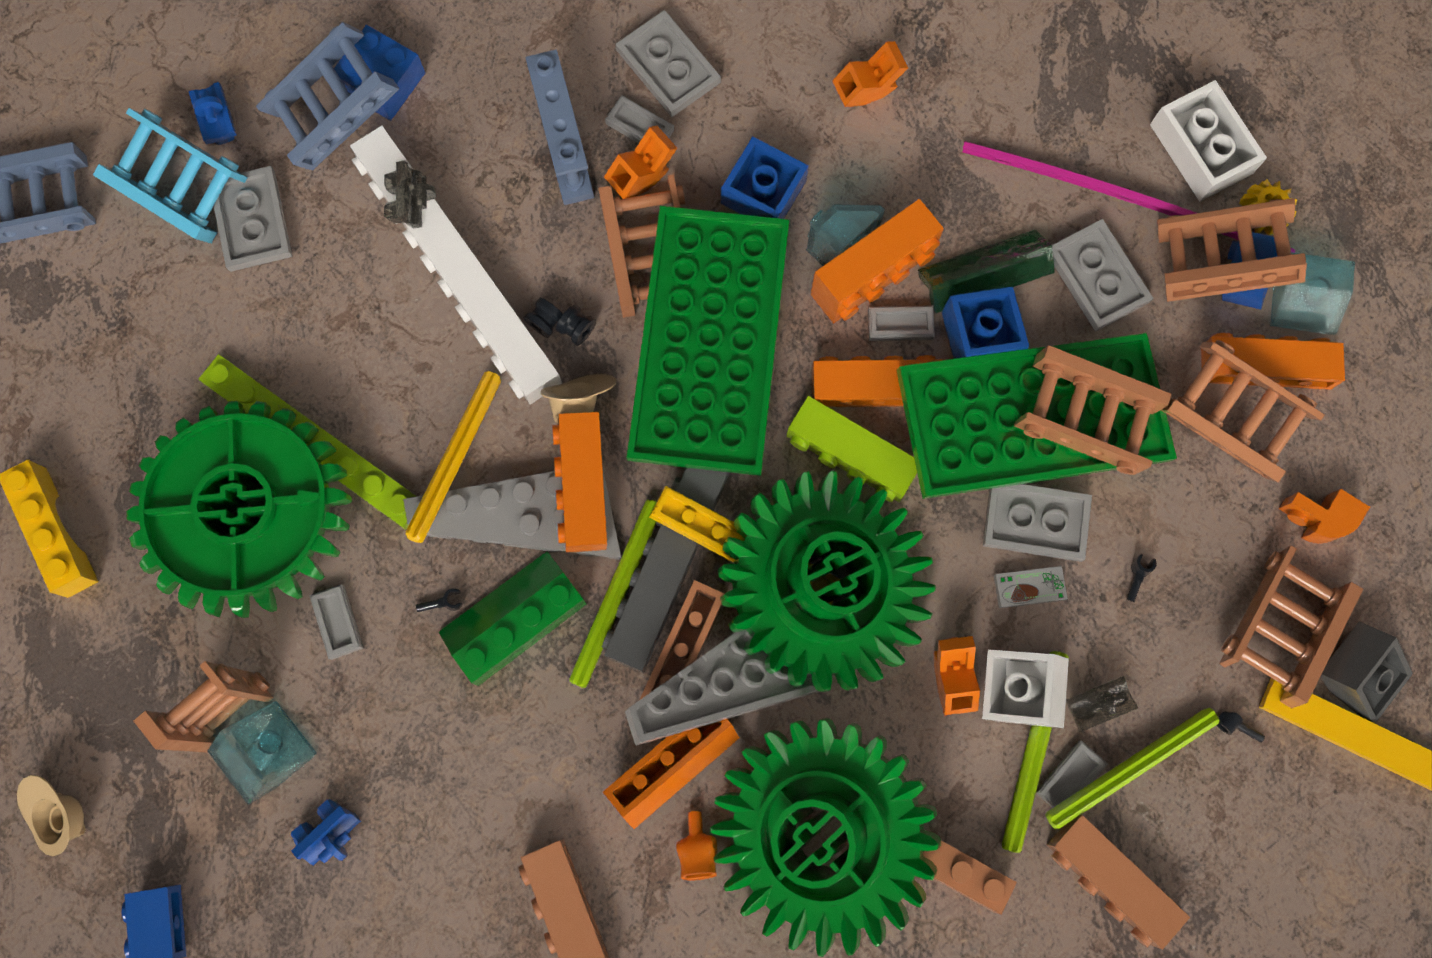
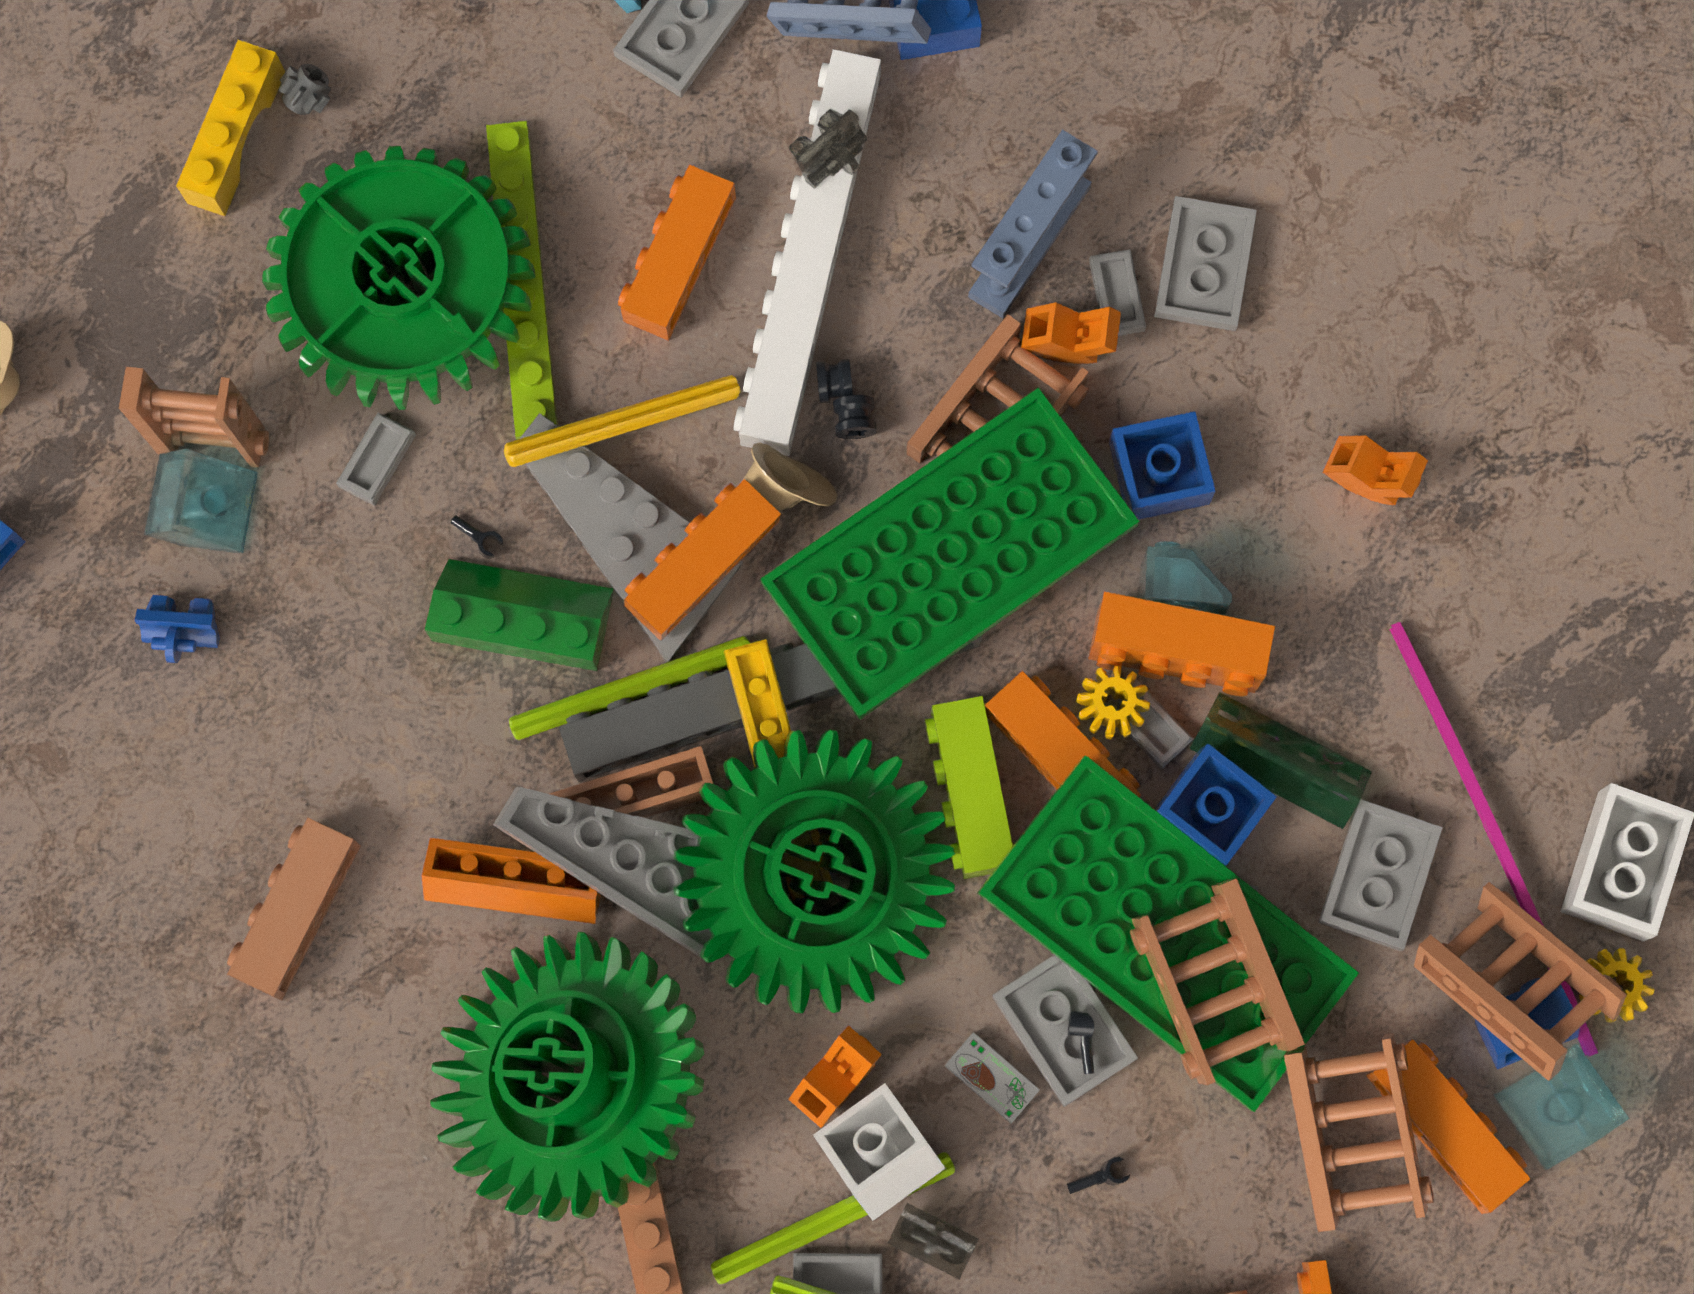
camera: 50 degrees right, 0 degrees up
(68, 464) = (305, 89): none -> dark grey gear
(382, 337) = (677, 252): none -> orange brick
(697, 851) = (454, 976): orange piece -> none
(889, 331) = (1108, 715): none -> yellow gear
(1051, 507) = (1082, 1025): none -> black hand

